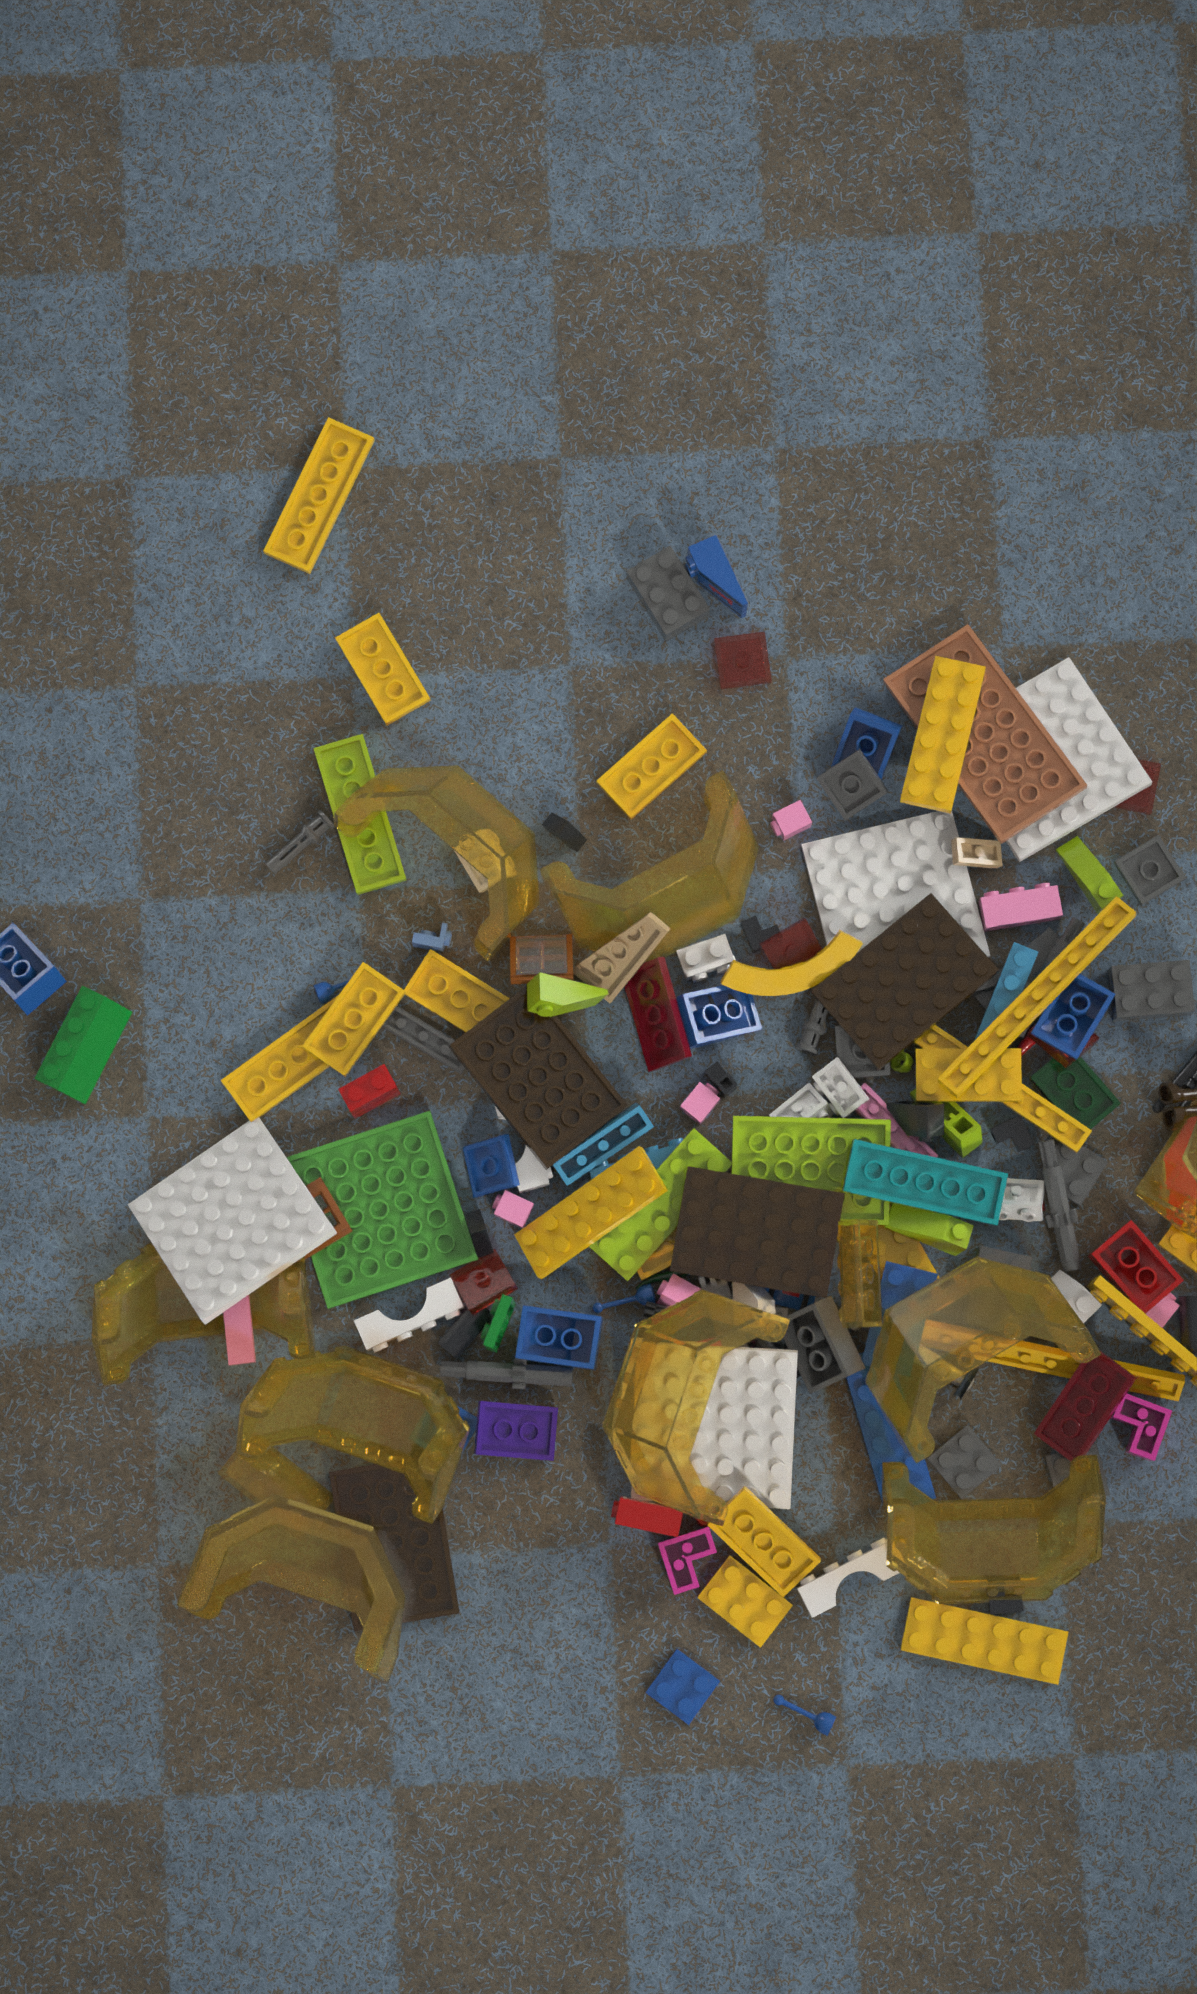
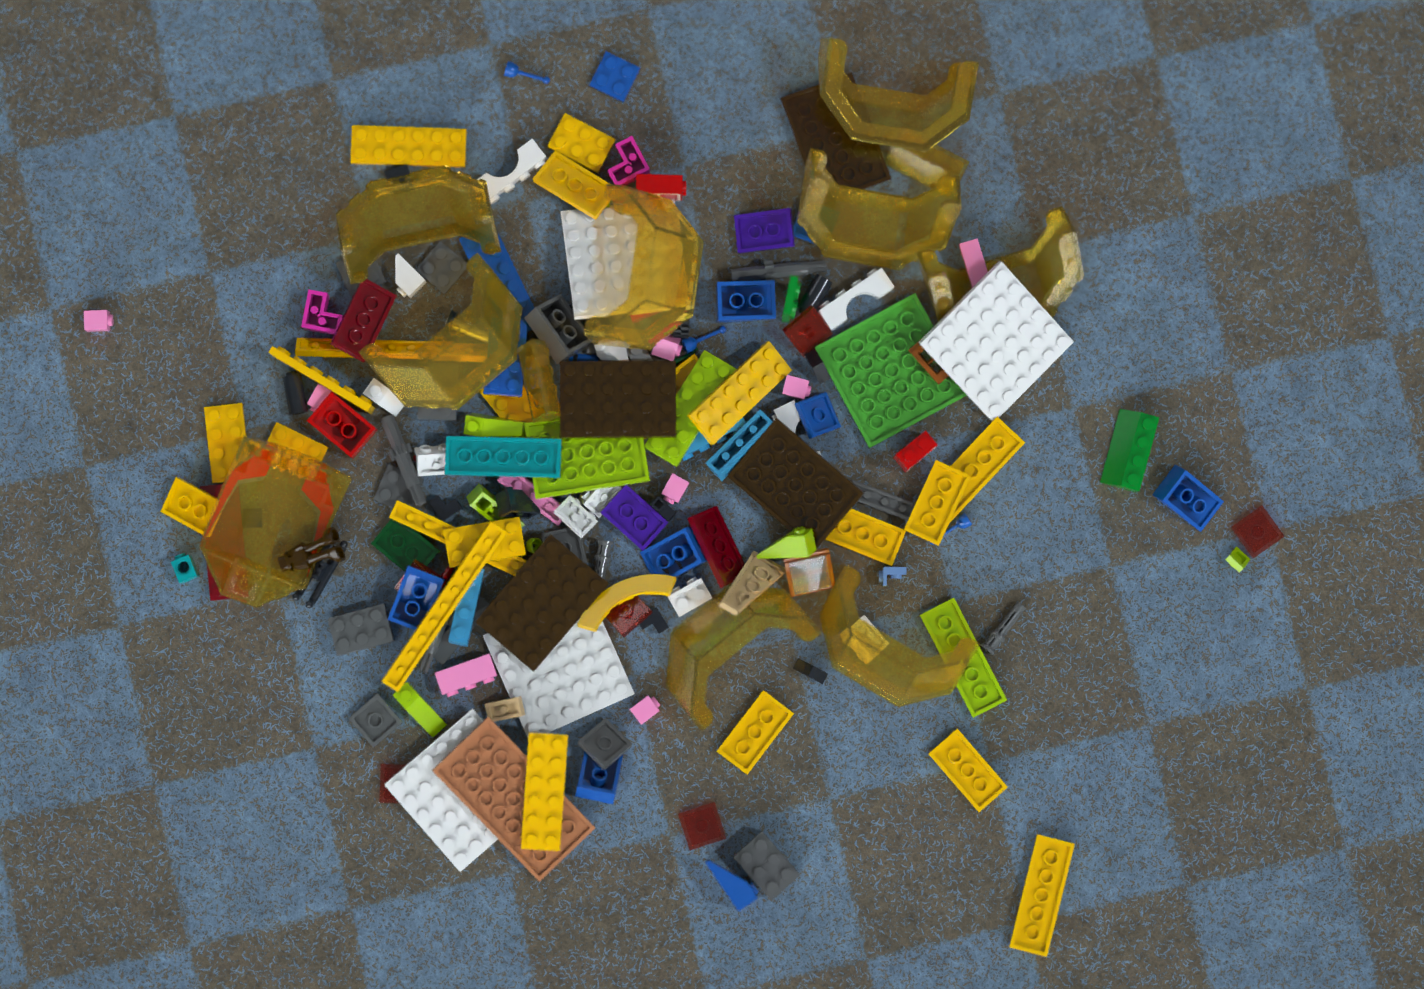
camera: 165 degrees right, 5 degrees up
(762, 1074) = (634, 517): none -> dark purple plate
(1015, 1456) = (406, 277): none -> white slope

